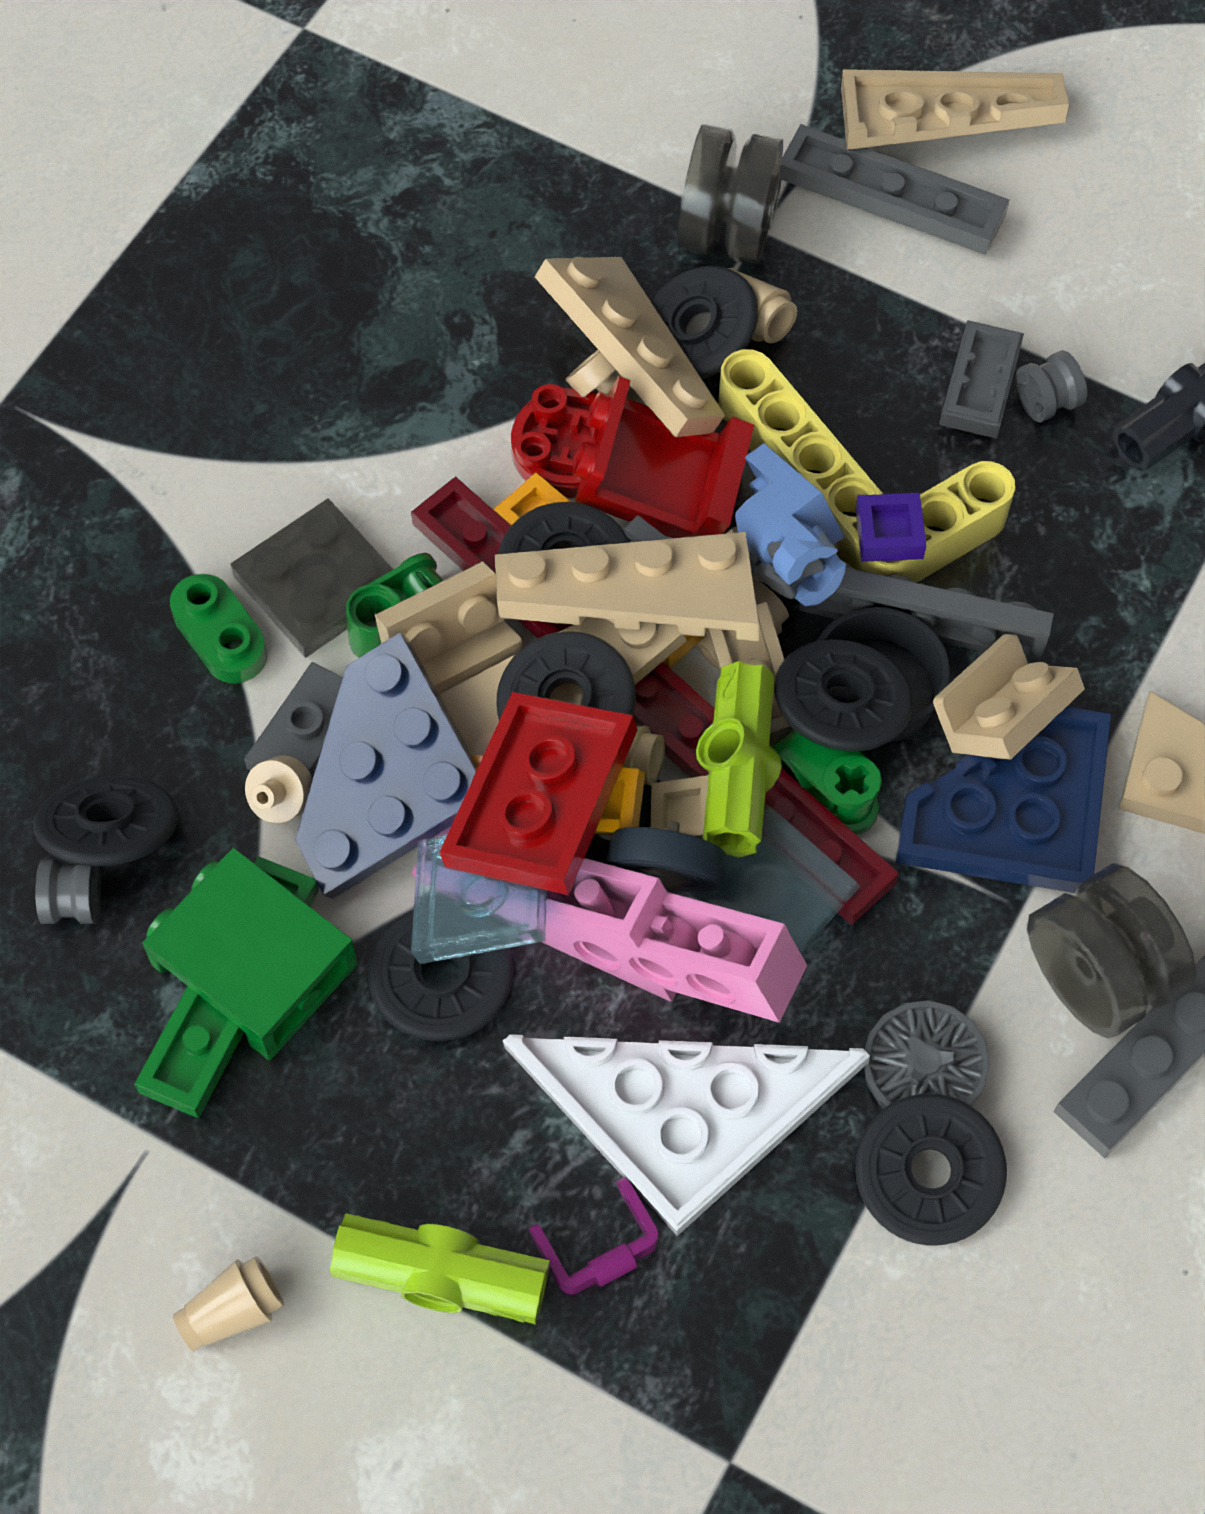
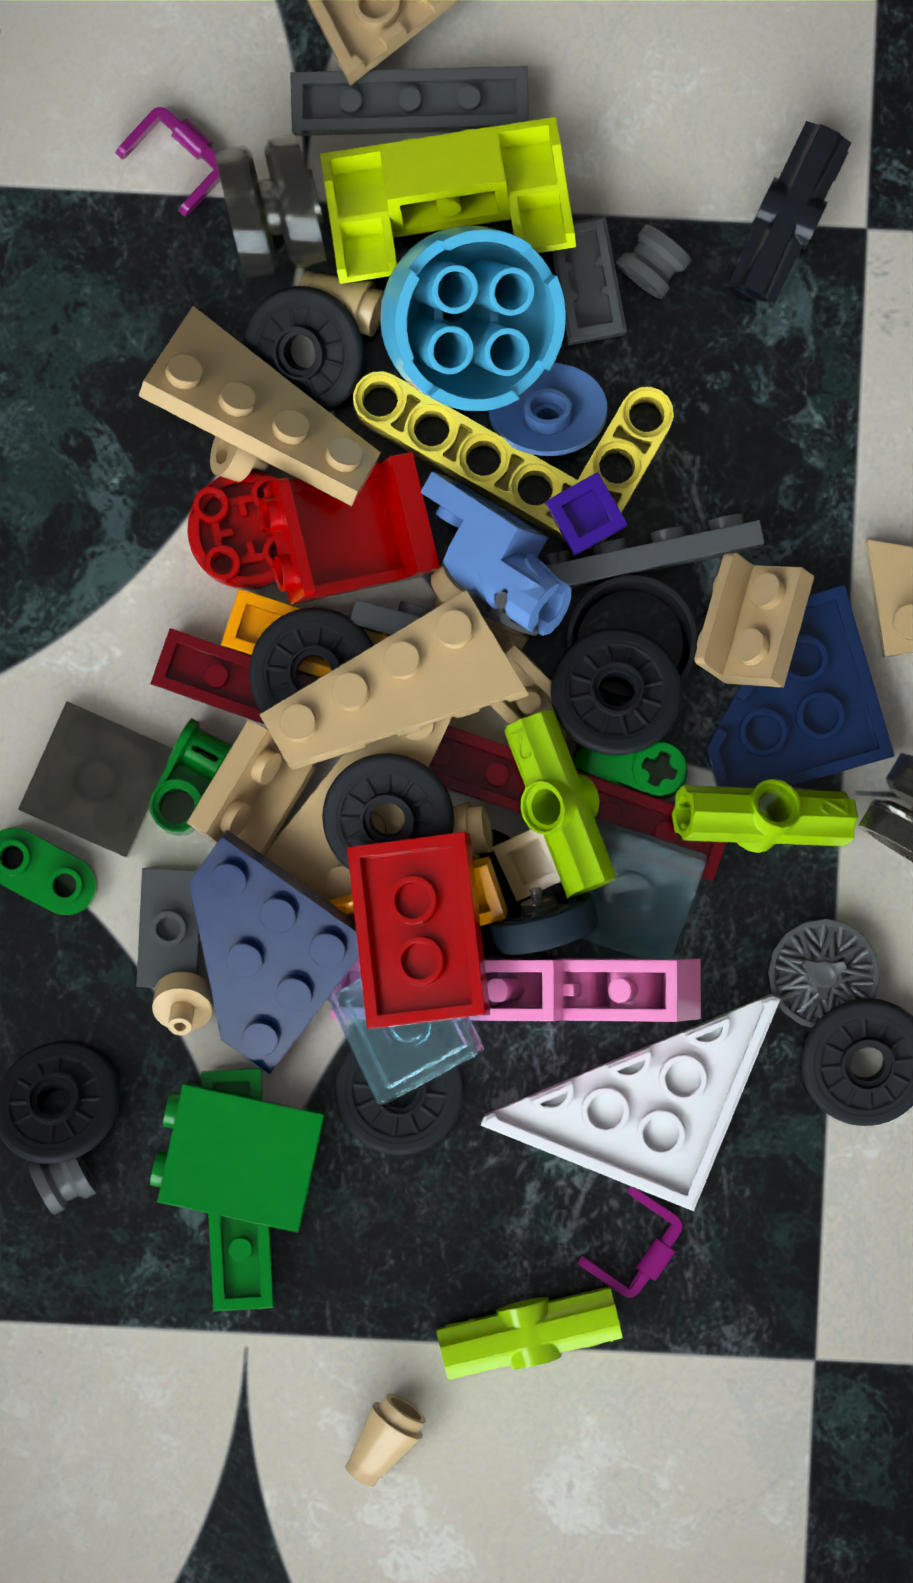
camera: 25 degrees left, 25 degrees up
(683, 137) = (188, 137): none -> magenta piece
(886, 313) = (502, 323): none -> medium azure cylinder
(892, 247) = (446, 184): none -> neon yellow bracket
(895, 455) = (555, 414): none -> medium blue dish
(937, 870) = (739, 817): none -> lime piece

